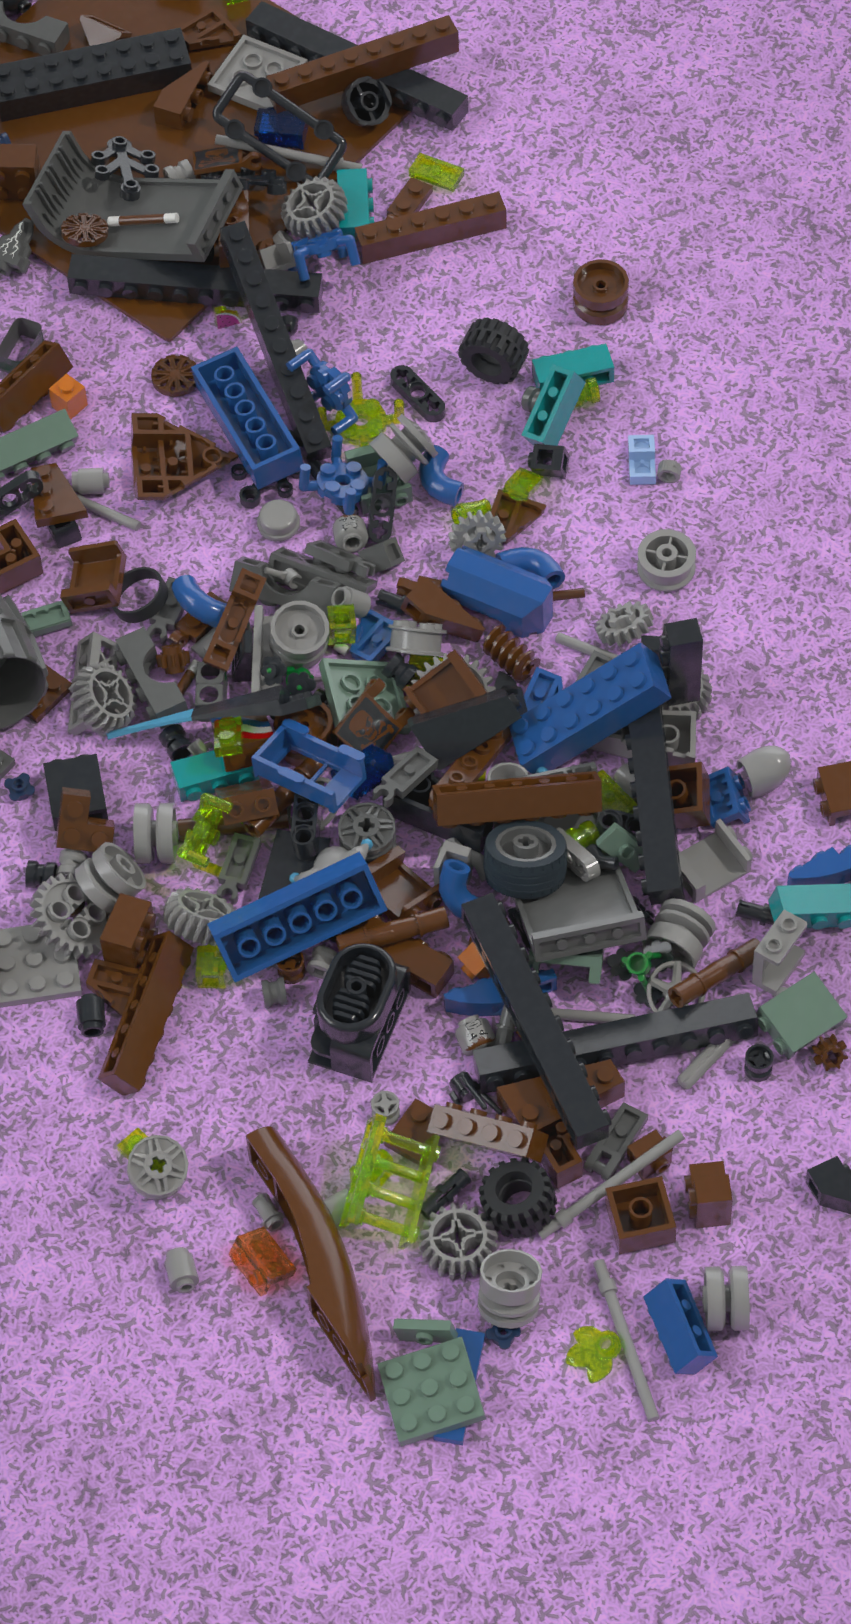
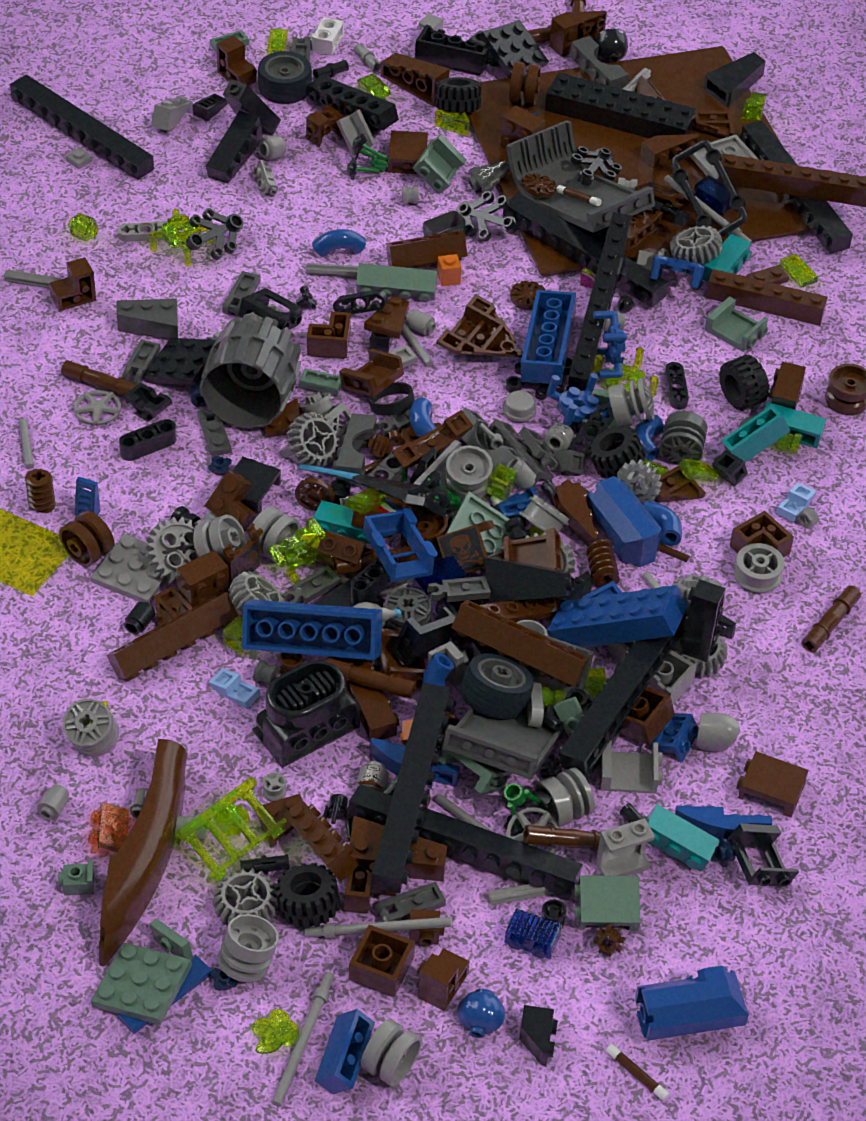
camera: 30 degrees right, 10 degrees down
(51, 303) = (470, 210): none -> plant
(64, 651) = (317, 403): none -> light grey piece
(76, 28) = (632, 85): none -> light grey axle
(104, 532) = (406, 354): none -> light grey plate
(150, 886) = (247, 557): none -> reddish brown flag
(155, 760) = (313, 494): none -> reddish brown wheel
(250, 1029) = (232, 687): none -> light blue slope
(277, 1340) = (77, 879): none -> sand green brick
(366, 102) = (781, 204): black cylinder -> none
(408, 852) = (418, 640): none -> black panel
(416, 504) = (615, 448): none -> black tyre
(424, 283) = (735, 326): none -> sand green panel
(481, 456) = (683, 437): none -> dark grey wheel
(541, 328) = (787, 385): none -> reddish brown brick
(641, 517) = (763, 530): none -> reddish brown brick
(754, 1094) = (533, 934): none -> clear blue brick
(769, 1204) = (481, 1012): none -> blue plant
(775, 573) = (831, 618): none -> reddish brown piece

